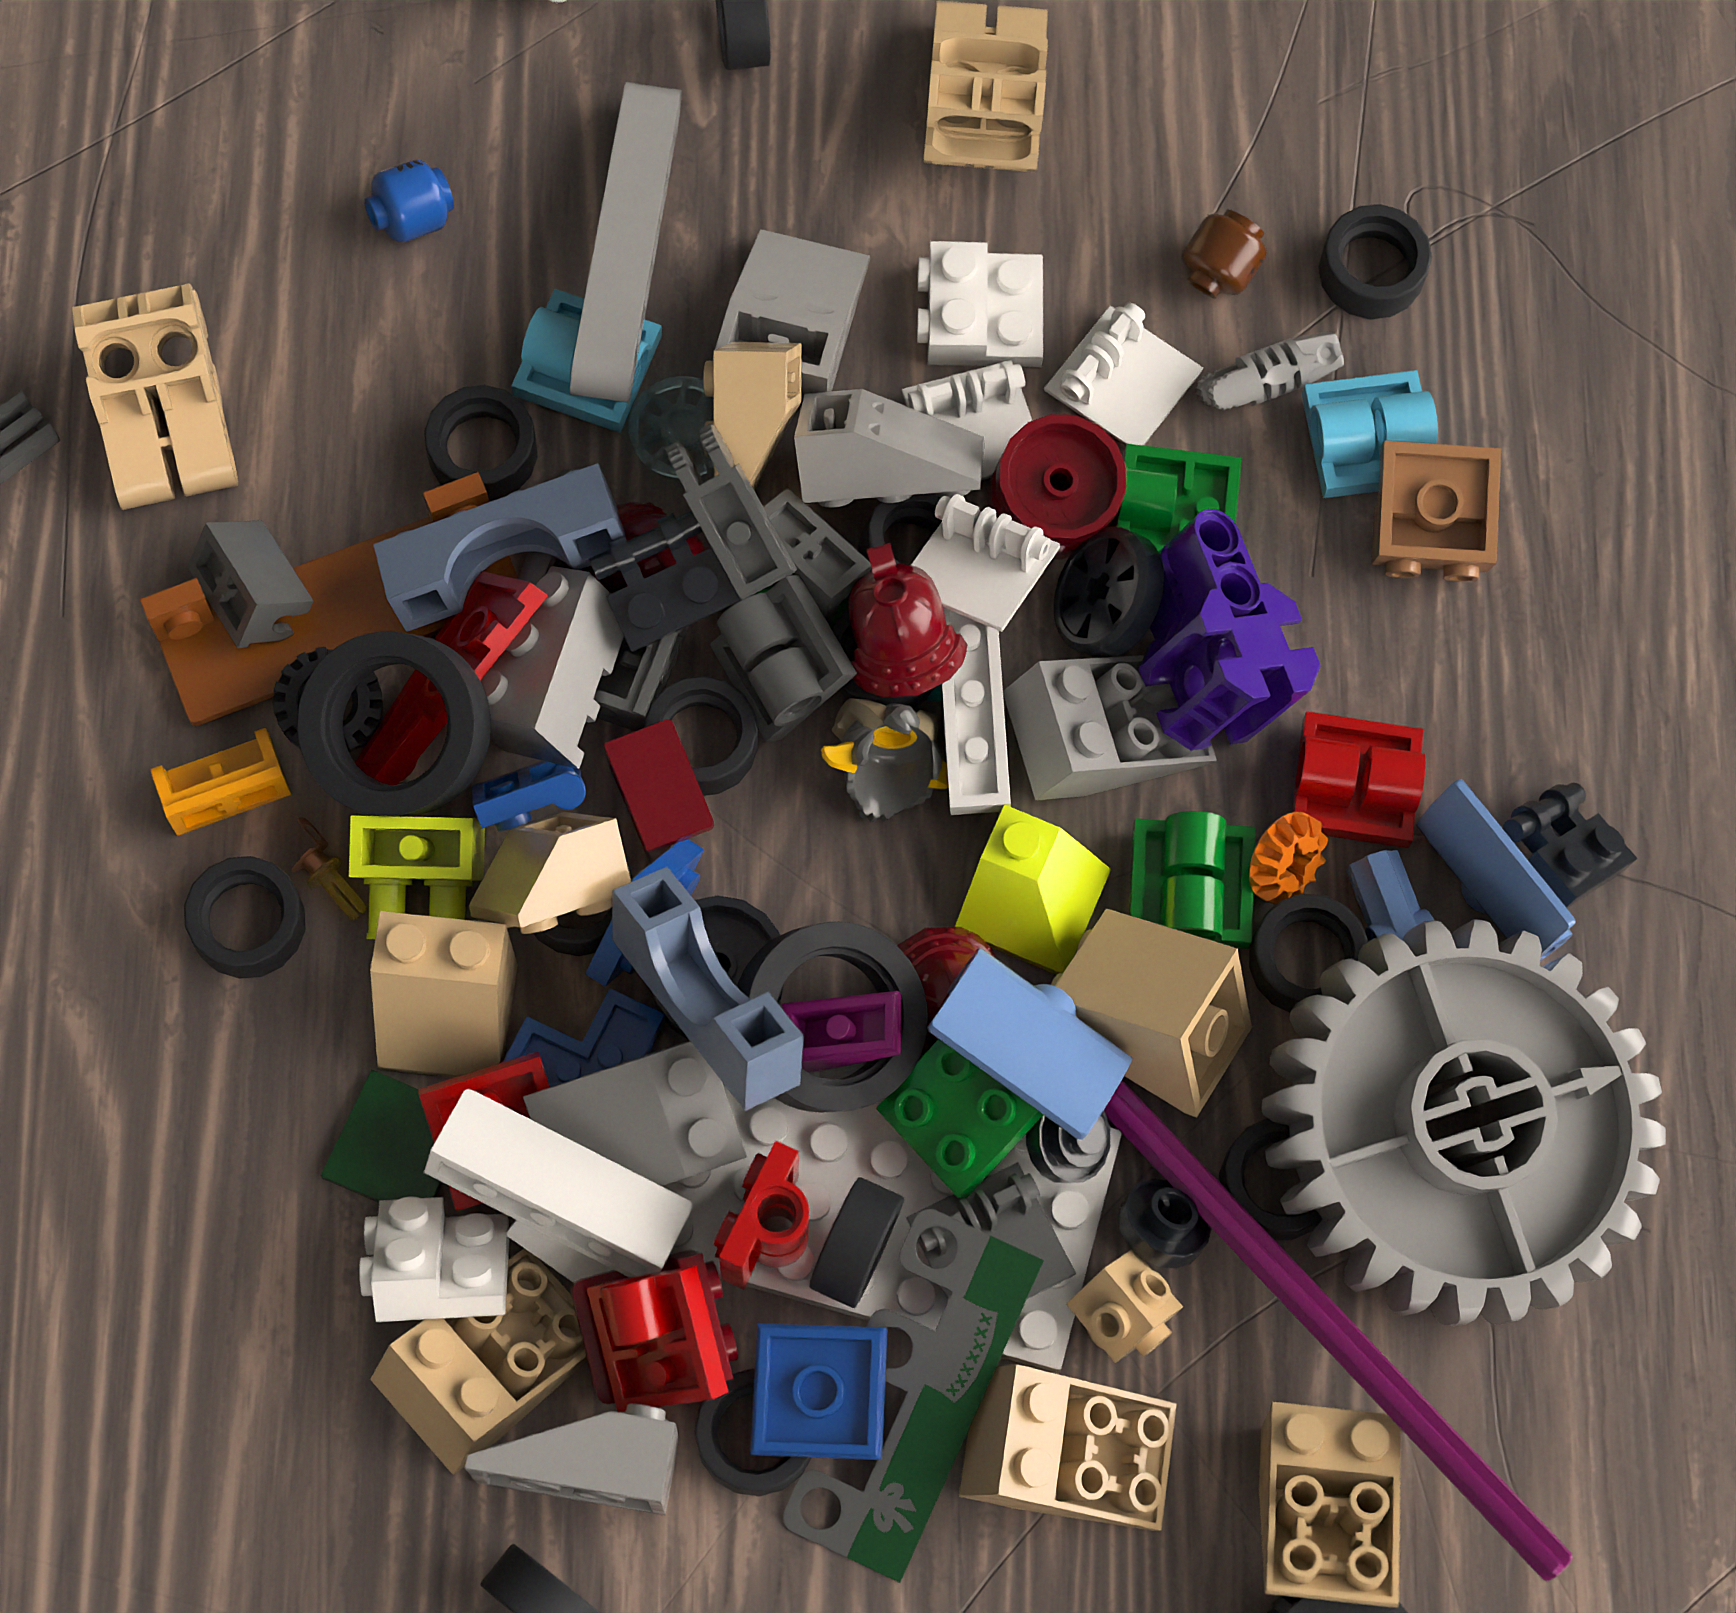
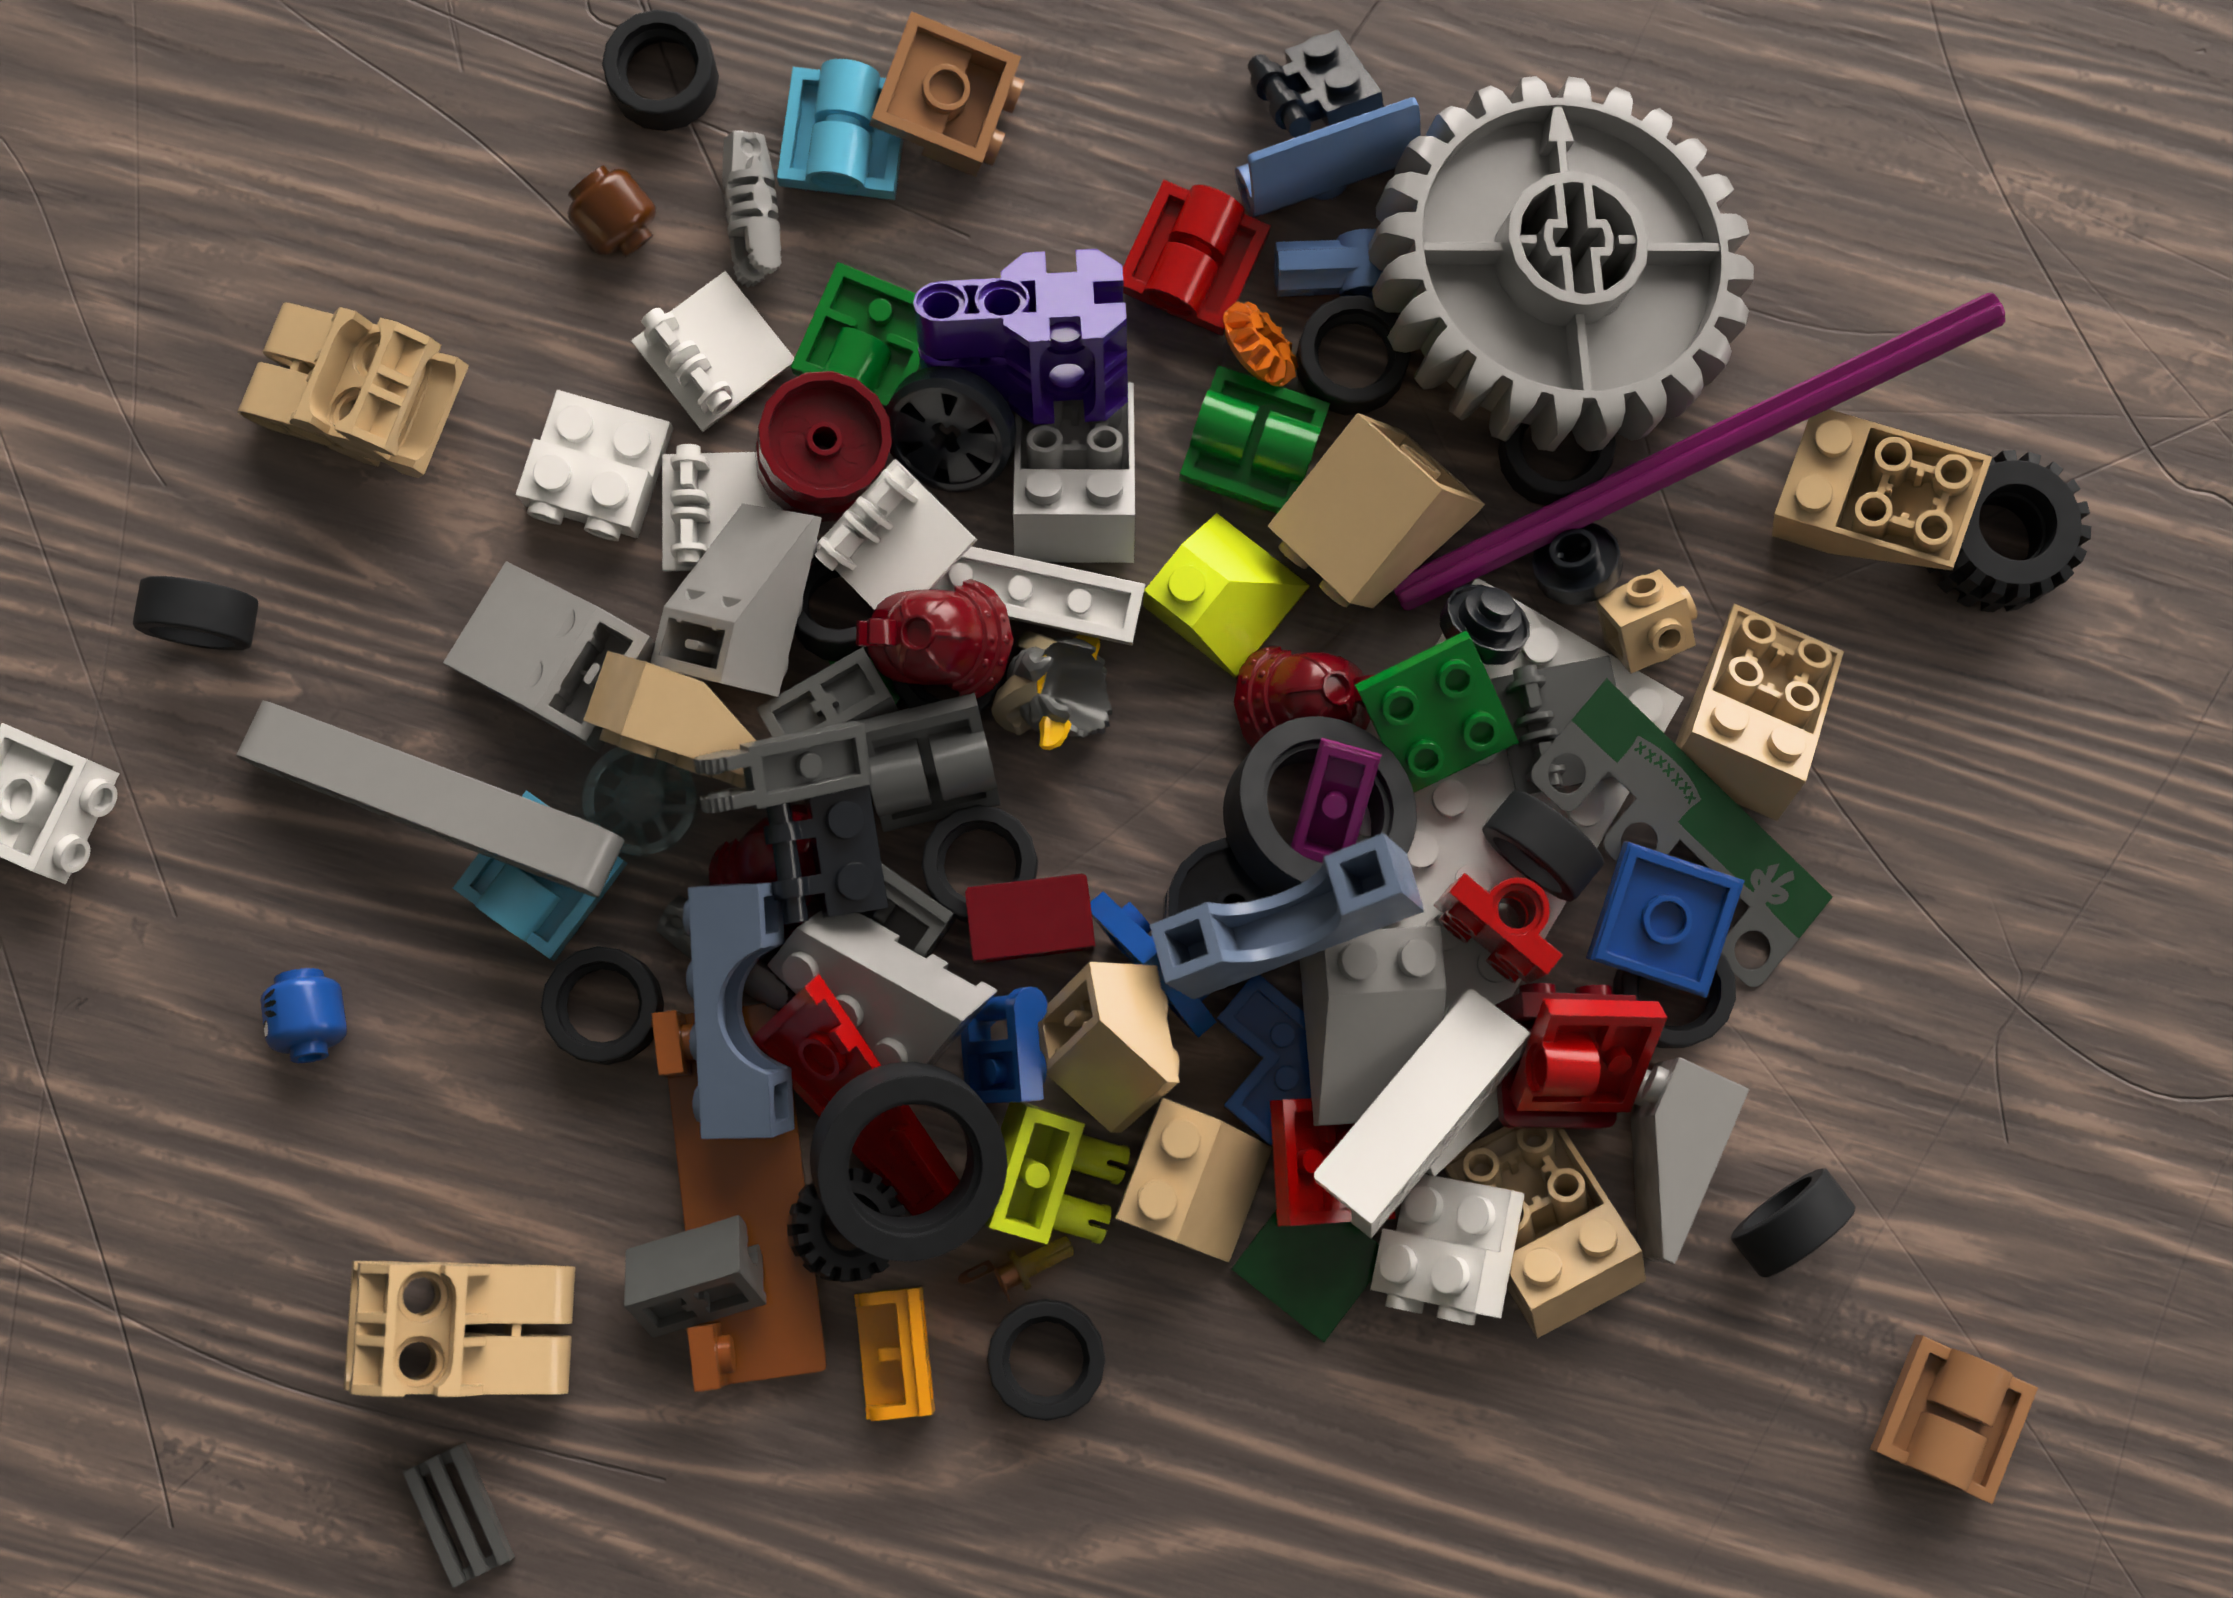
camera: 75 degrees left, 10 degrees up
(1031, 1042) = (1401, 629): medium blue panel -> none

